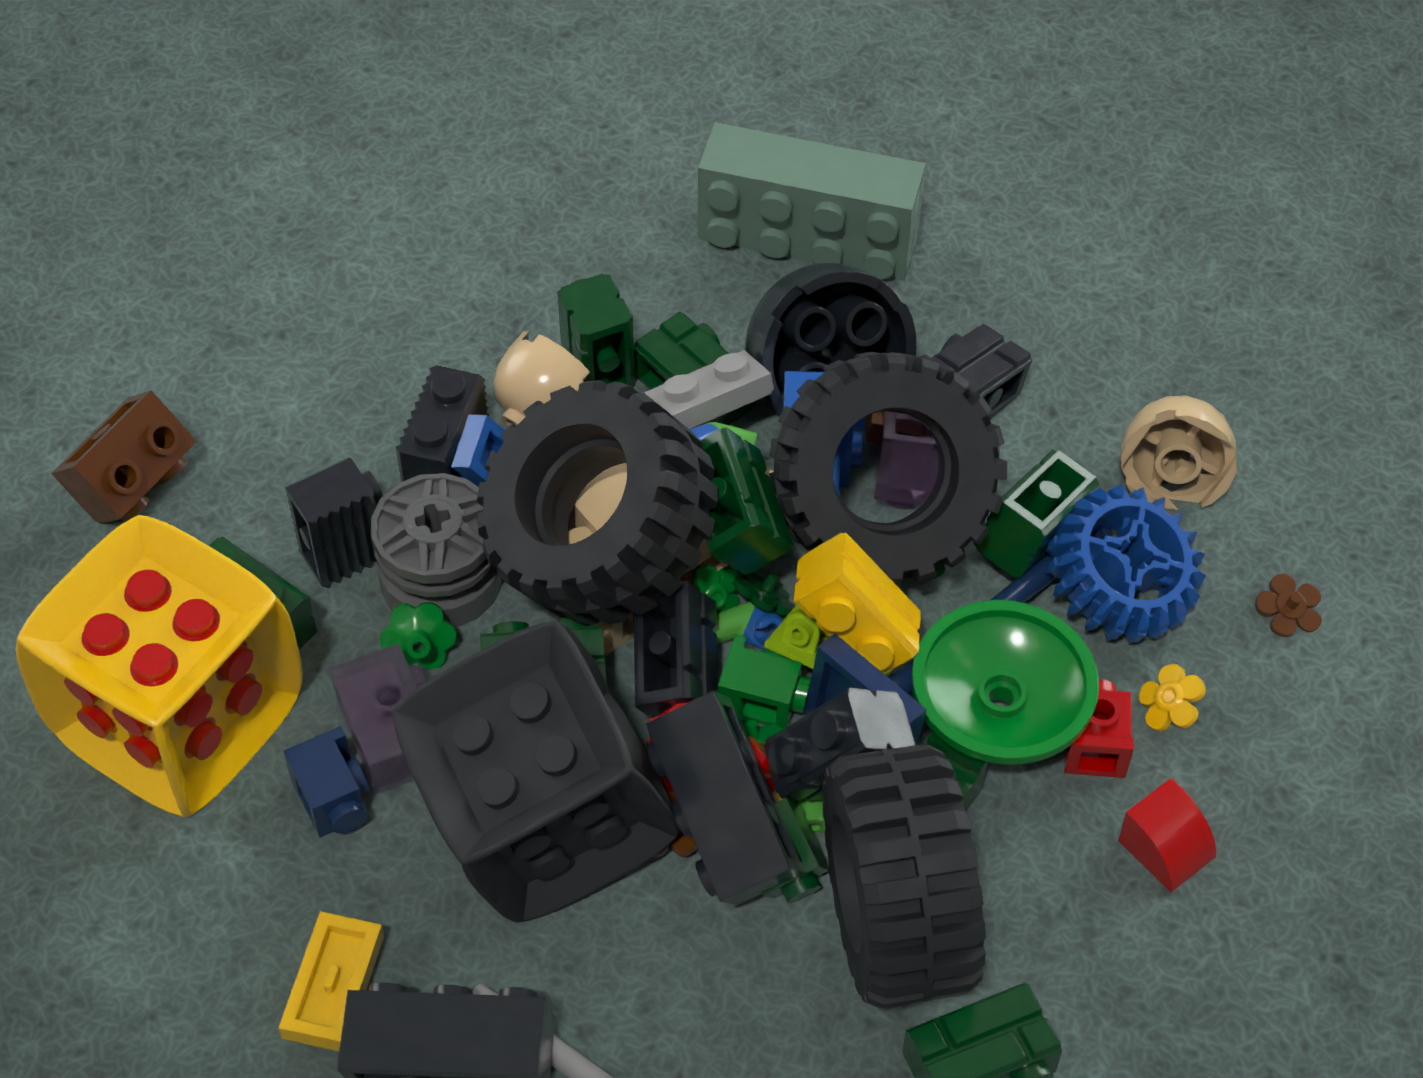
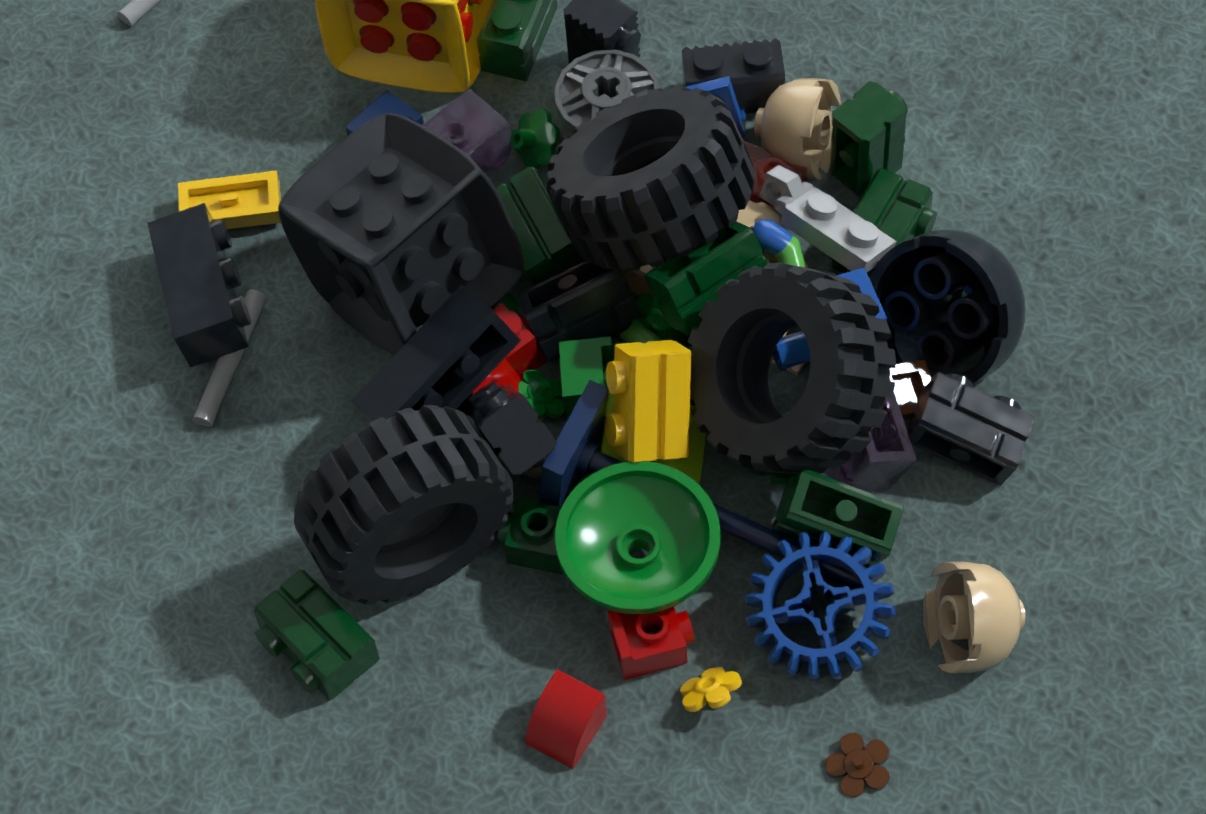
camera: 75 degrees right, 5 degrees up
(809, 200) = (1104, 241): sand green brick -> none

